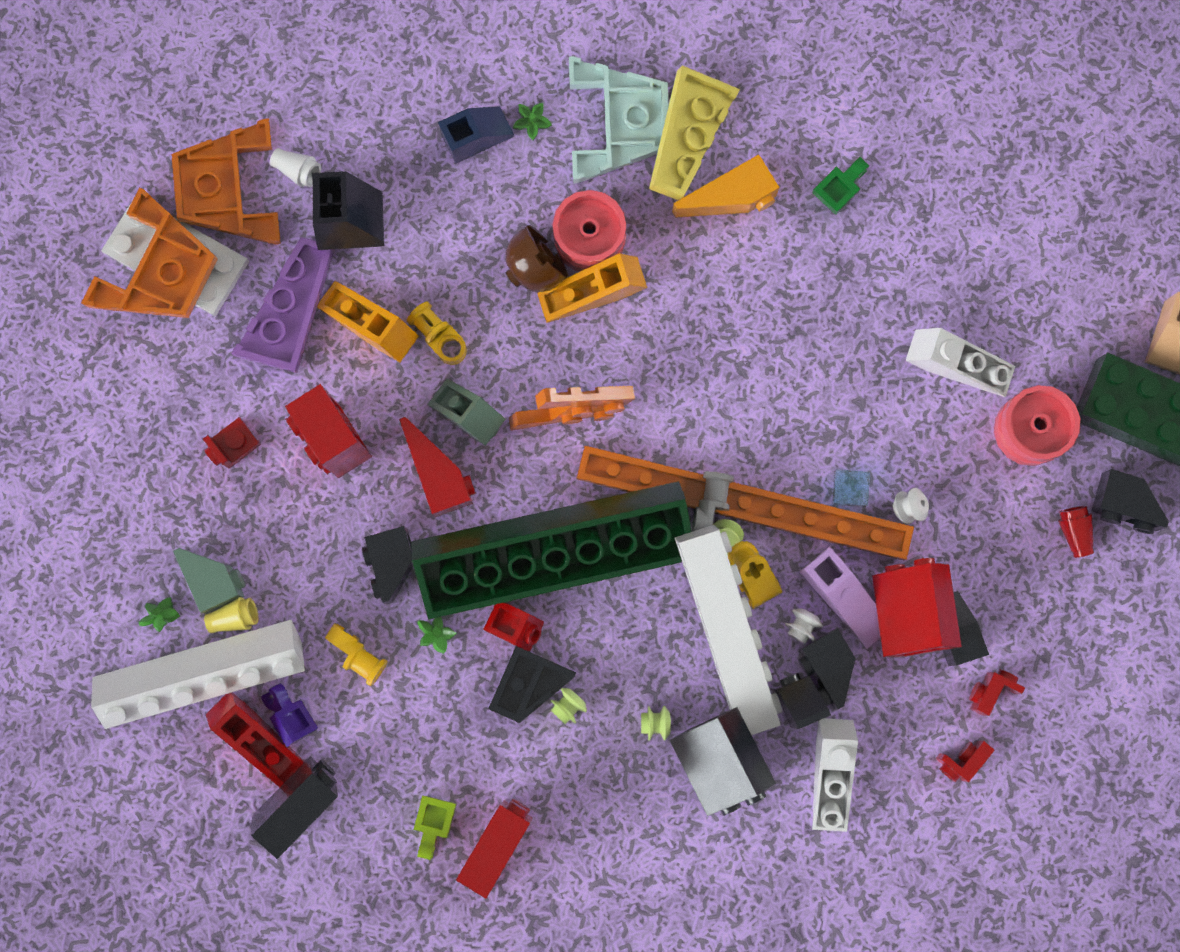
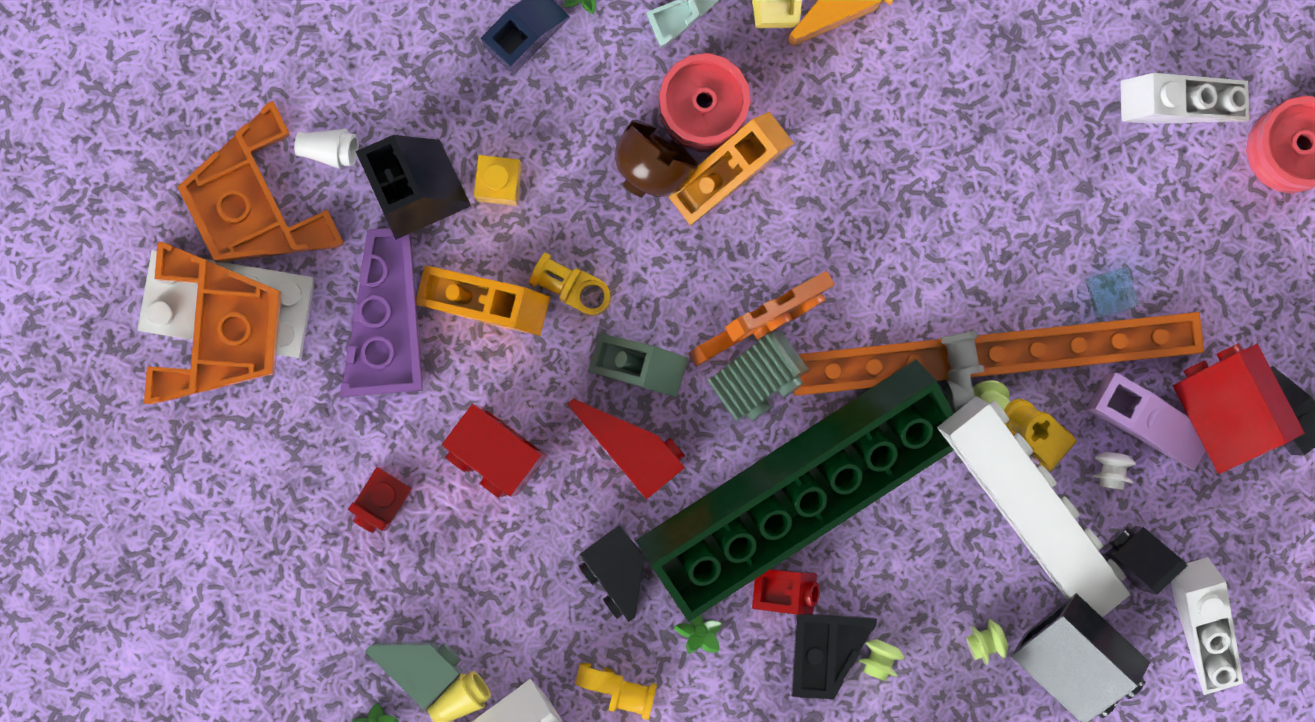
camera: 25 degrees left, 5 degrees up
(412, 235) = (498, 180): none -> yellow brick
(554, 452) = (759, 376): none -> sand green brick
(831, 665) = (1160, 503): black slope -> none
(911, 506) = (1187, 289): white wheel -> none

